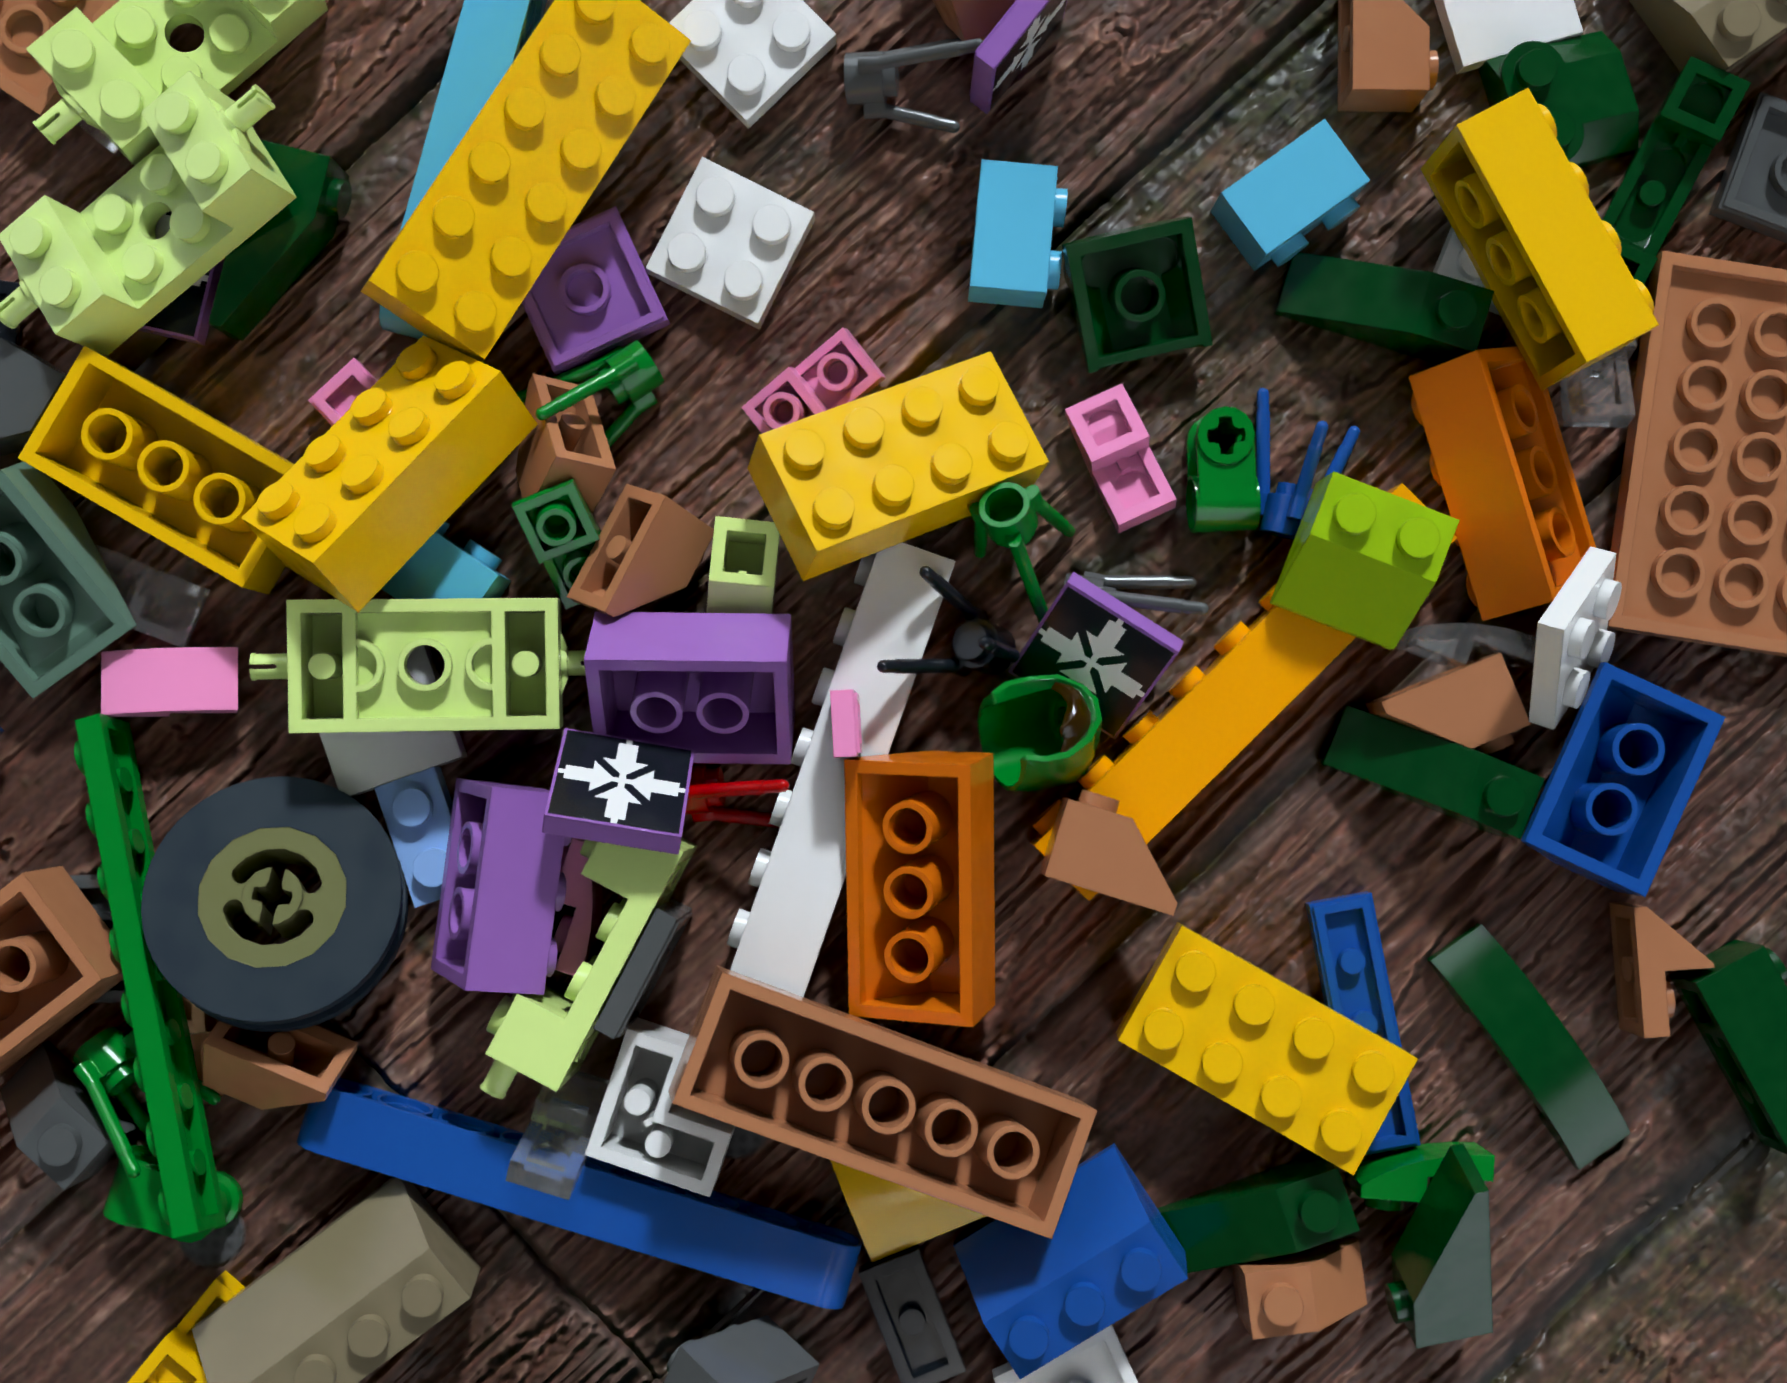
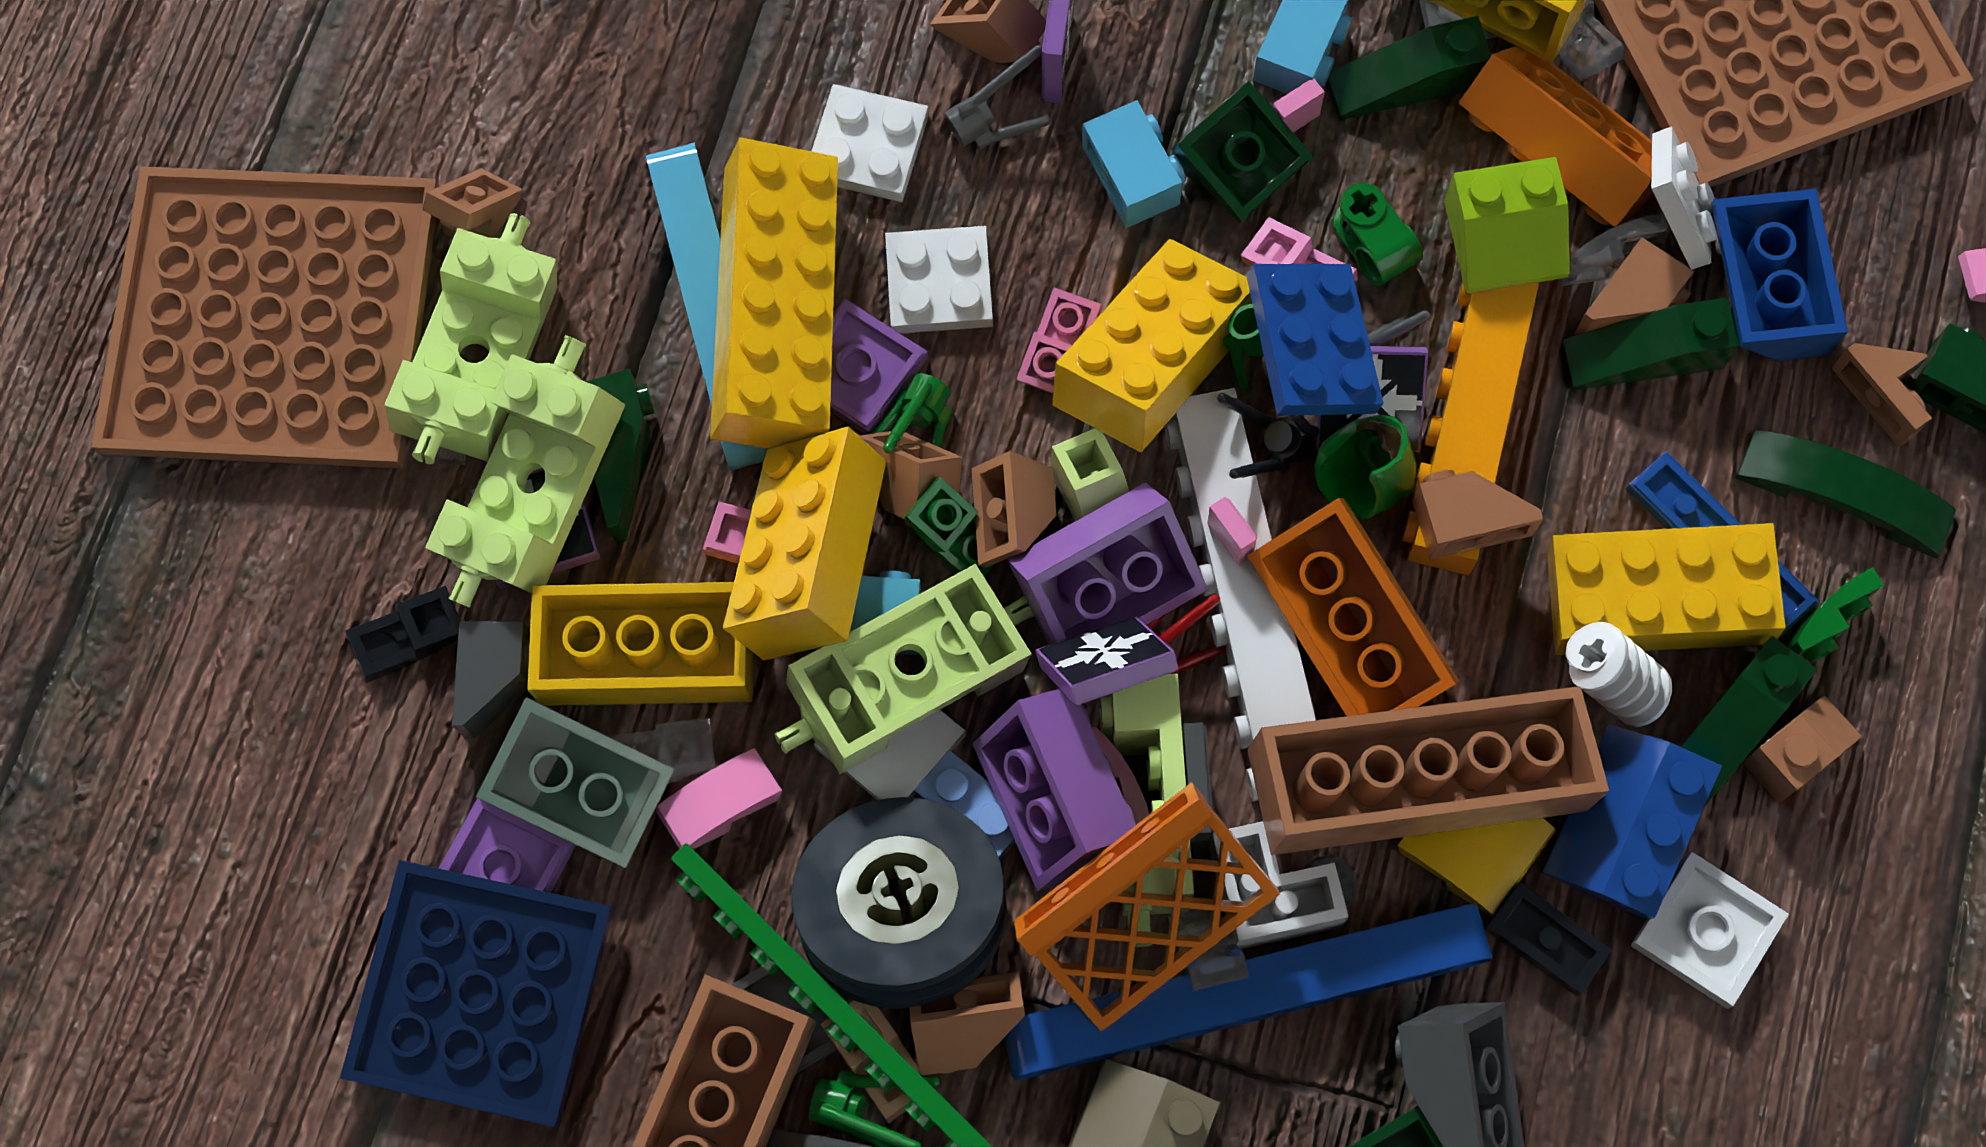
camera: 30 degrees left, 15 degrees down
(482, 1032) = (1113, 872): none -> orange fence
(1059, 569) = (1314, 339): none -> blue plate
(1151, 1112) = (1618, 674): none -> white piece
(1234, 275) = (1300, 105): none -> bright pink tile
(1286, 507) = (1434, 226): blue plant -> none
(1445, 1258) = (1888, 653): slope -> none

